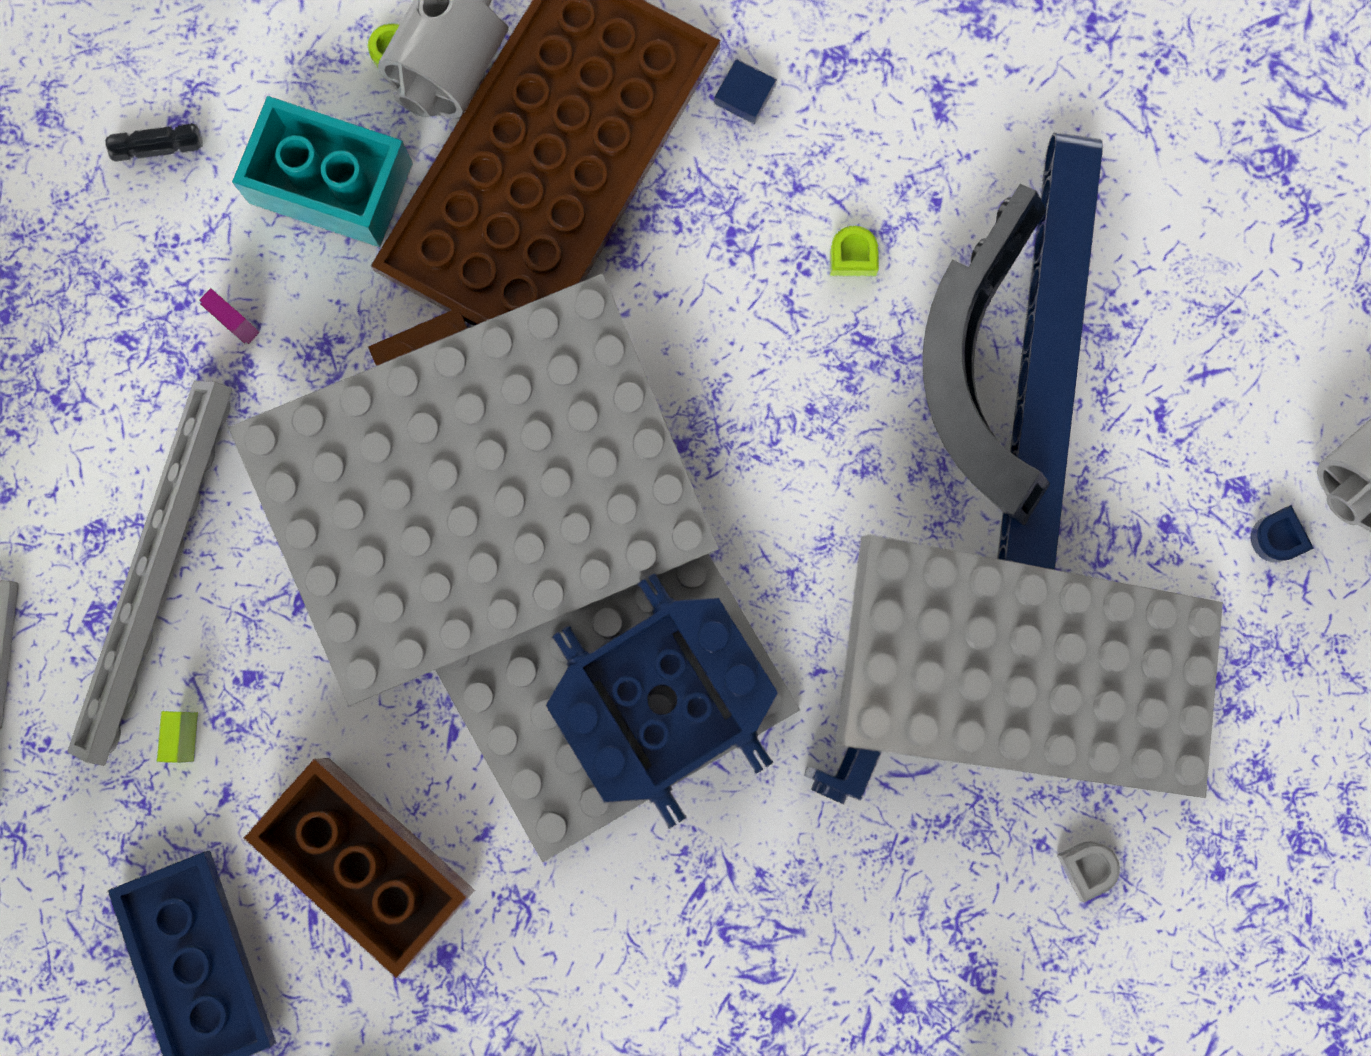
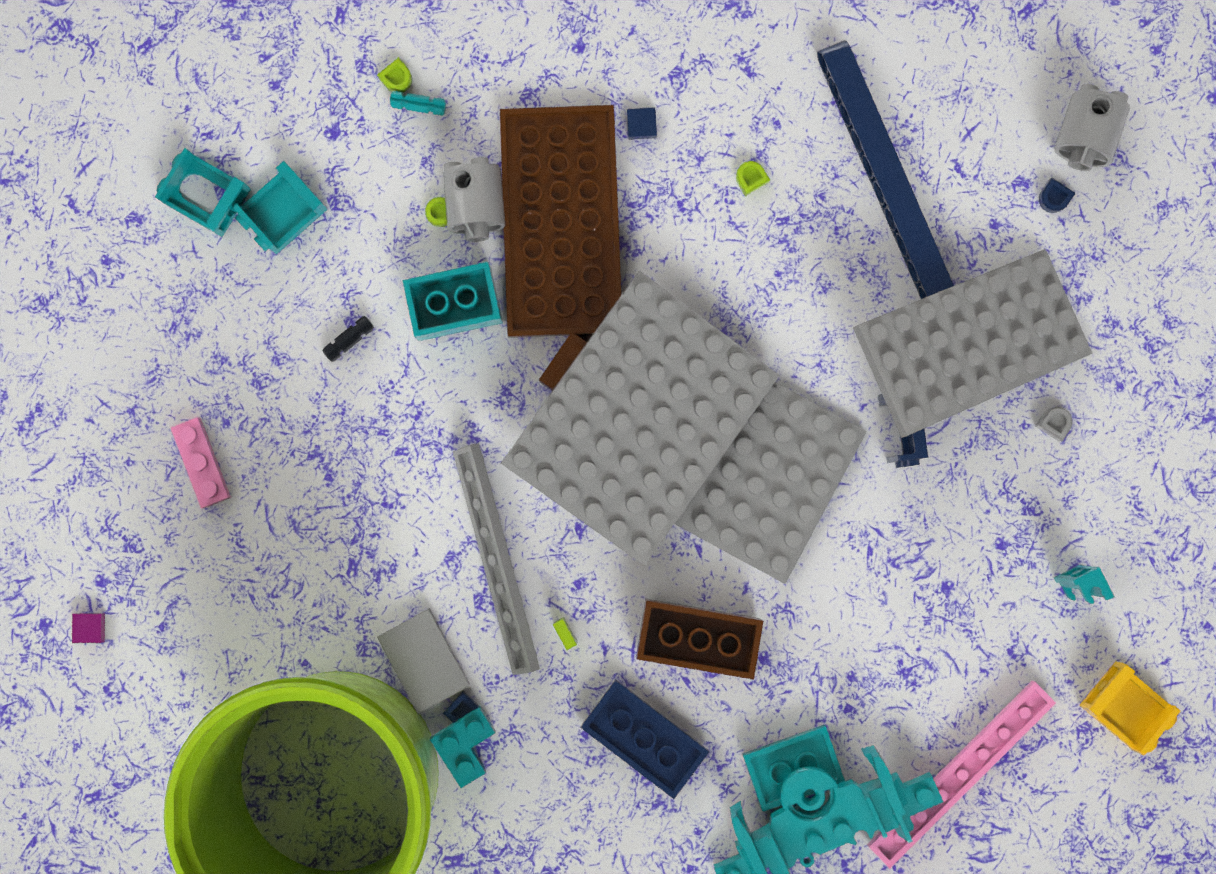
camera: 30 degrees left, 5 degrees up
(228, 316) = (450, 407): magenta tile -> none
(673, 741) = (821, 474): dark blue piece -> none
(950, 355) = (837, 207): black arch -> none

